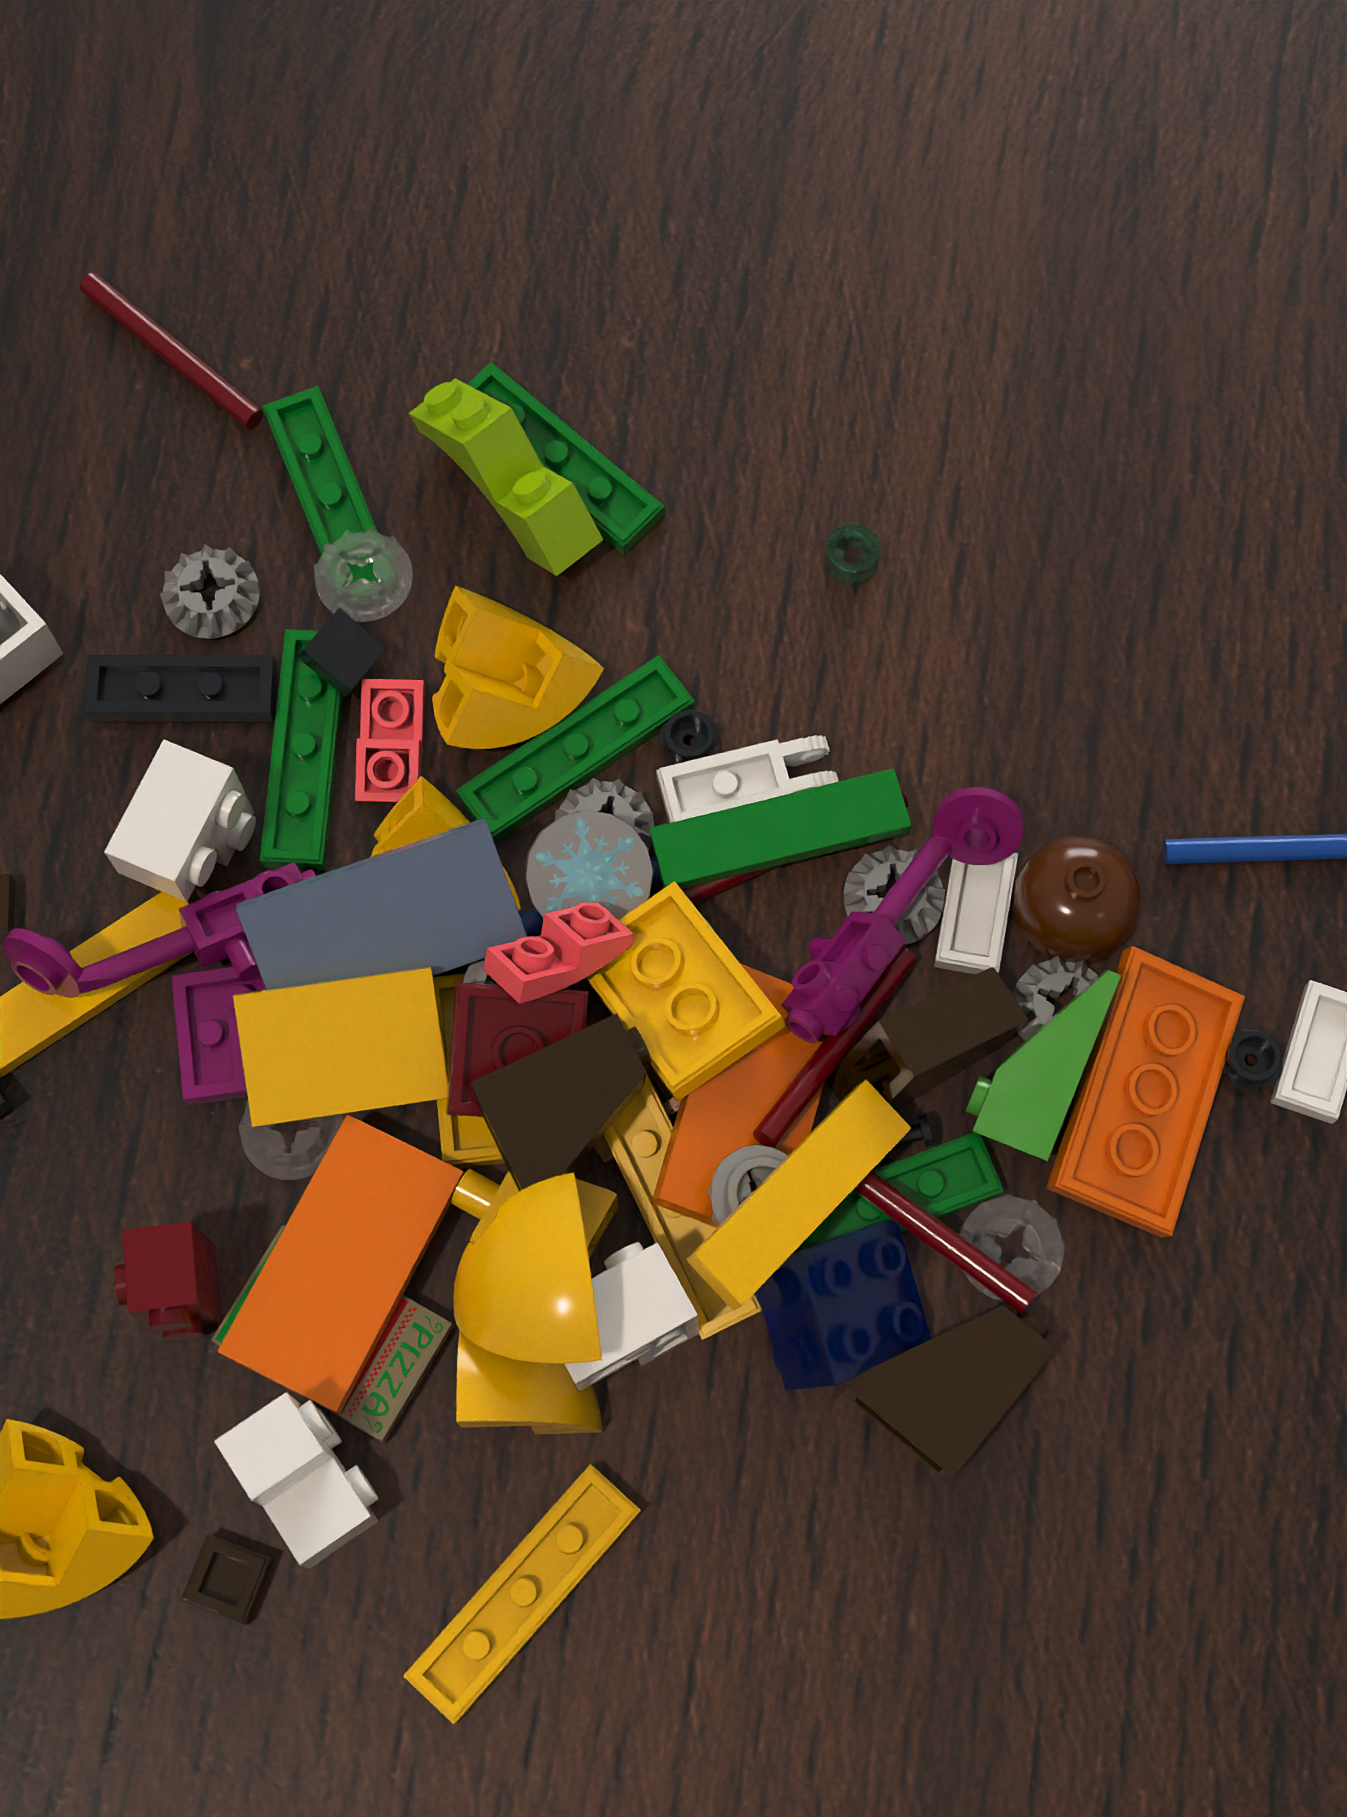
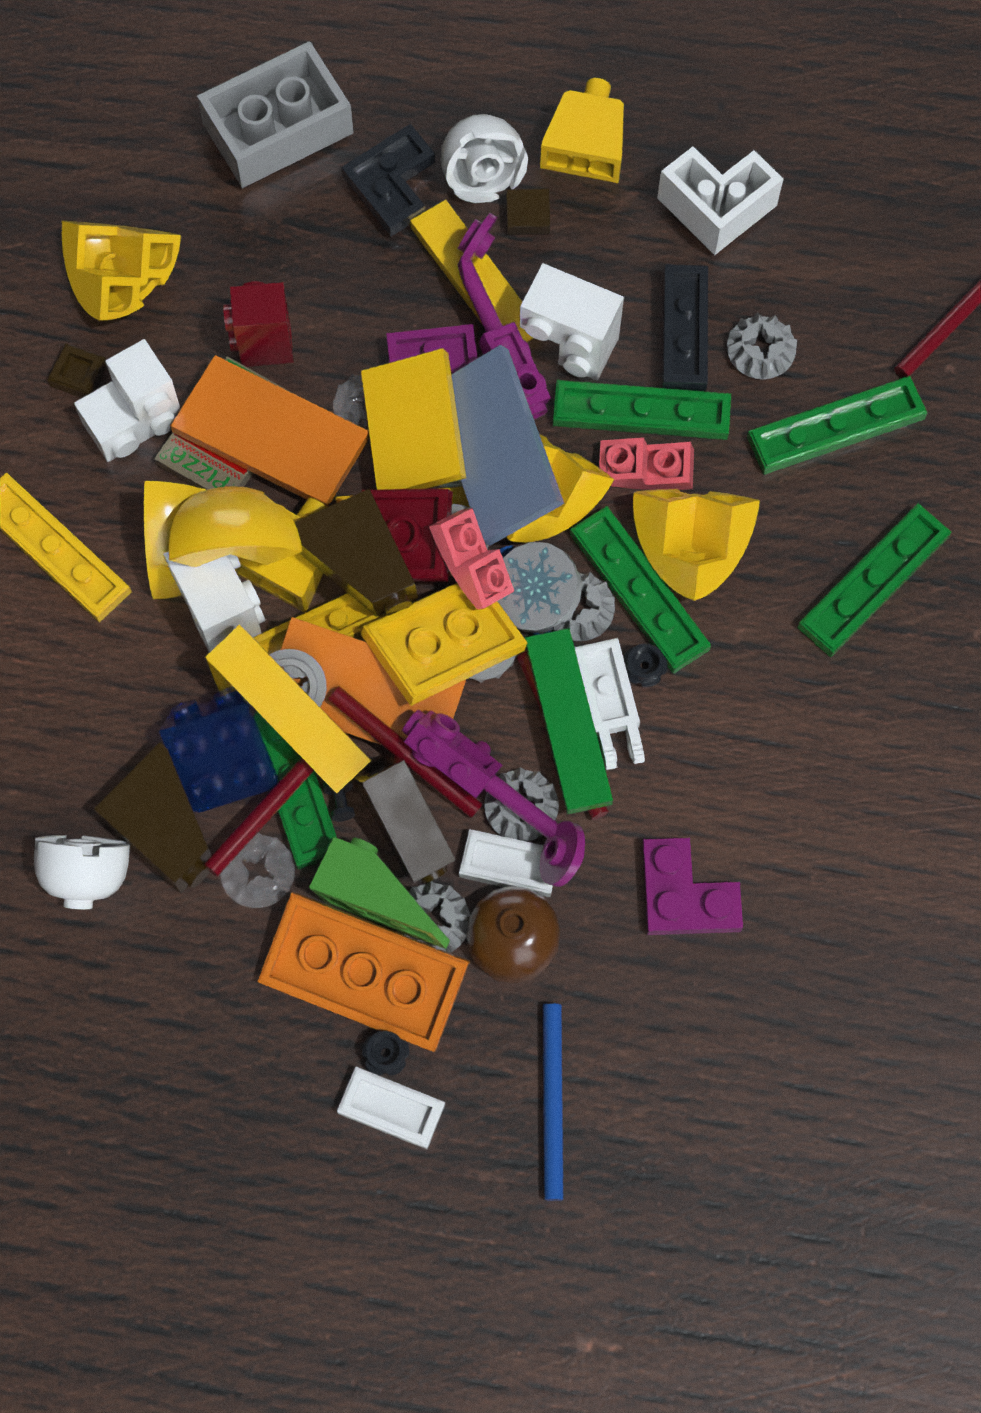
camera: 90 degrees right, 0 degrees up
(342, 652) = (709, 427): black tile -> none
(364, 599) = (774, 458): clear gear -> none
(498, 457) = (854, 529): lime arch -> none
(846, 572) = (805, 800): clear green bush -> none
(1010, 703) = (676, 902): none -> magenta plate
(1033, 1493) = (80, 868): none -> white cylinder

